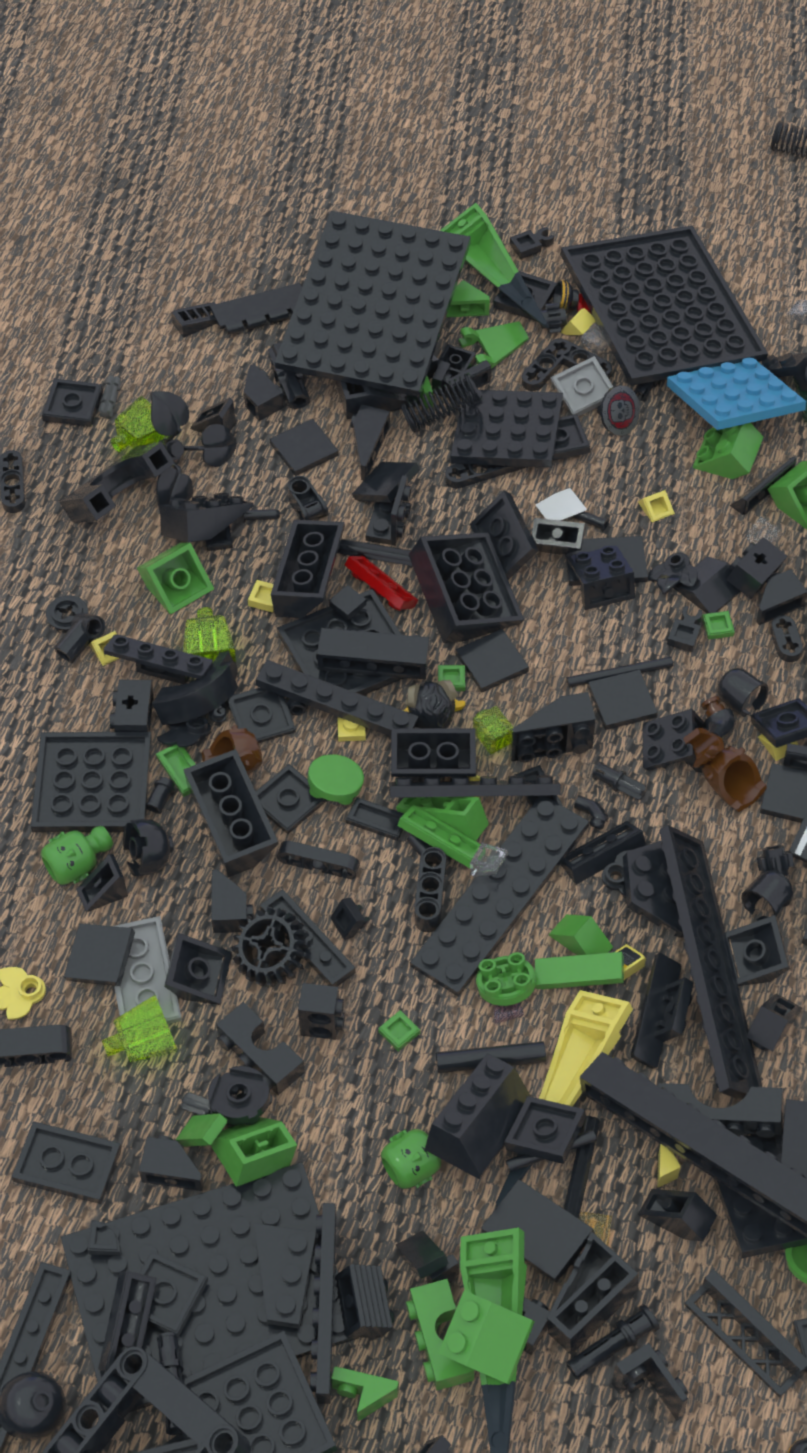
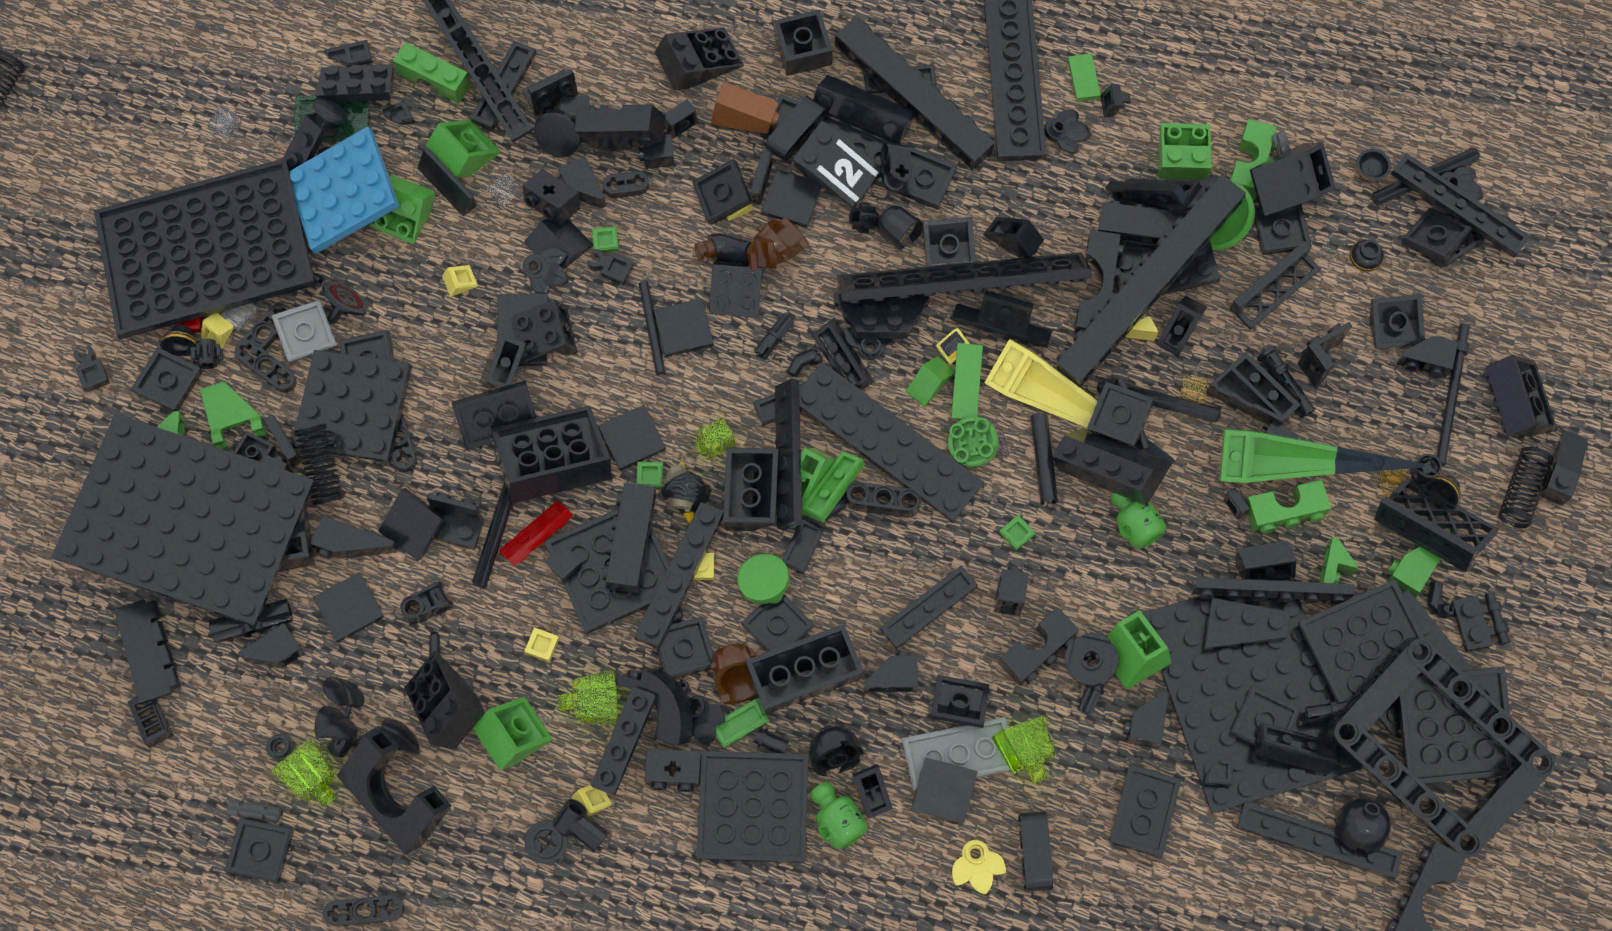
camera: 90 degrees left, 15 degrees up
(201, 1130) = (1121, 692): bright green tile -> none
(220, 413) = (303, 697): black slope -> none
(267, 969) = (938, 643): black gear -> none
(306, 567) = (522, 596): black slope -> none
(314, 857) = (849, 593): black beam -> none
(348, 918) = (910, 570): black tile -> none
(422, 1254) = (1225, 516): black tile -> none
(486, 1337) = (1309, 462): bright green slope -> none
(487, 860) = (863, 445): clear slope -> none
(492, 259) = (84, 422): bright green plate -> none
(550, 1232) = (1199, 429): black tile -> none
(556, 729) = (726, 378): black slope -> none
(561, 505) = (452, 365): white sticker -> none
(593, 520) = (470, 338): black piece -> none
(737, 686) = (686, 225): black helmet -> none

